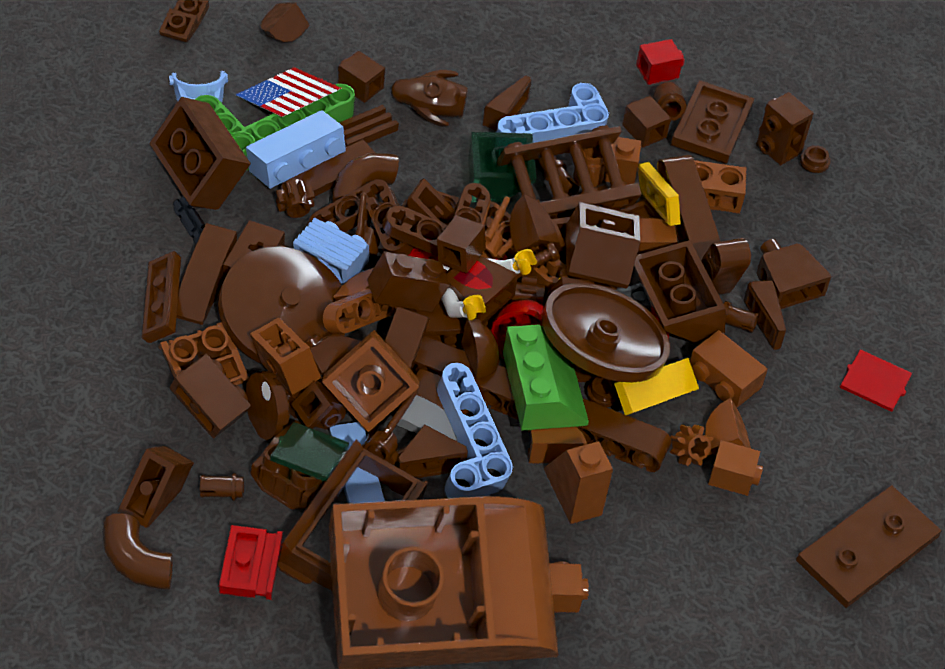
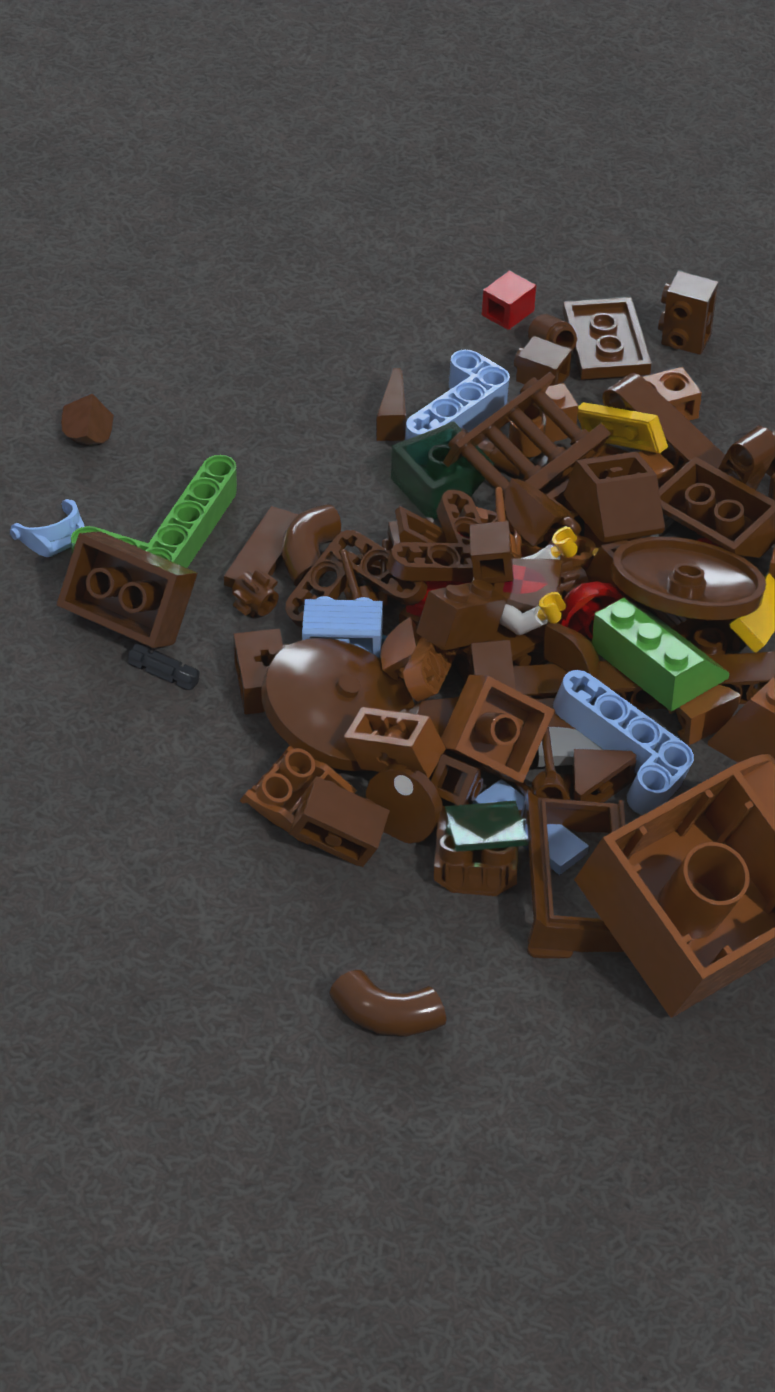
camera: 25 degrees left, 5 degrees down
(155, 484) = (350, 933): reddish brown slope -> none
(161, 297) = (198, 753): reddish brown tile -> none
(204, 273) = (225, 709): reddish brown slope -> none
(222, 486) = (424, 901): reddish brown pin -> none
(250, 562) = (504, 961): red plate -> none
(288, 91) = (157, 490): sticker -> none
(296, 149) = (220, 540): light blue brick -> none
(362, 75) = (216, 437): reddish brown brick -> none
(364, 122) = (244, 514): reddish brown tile -> none
(432, 96) = (312, 430): reddish brown animal -> none
(815, 159) = (732, 332): reddish brown plate -> none

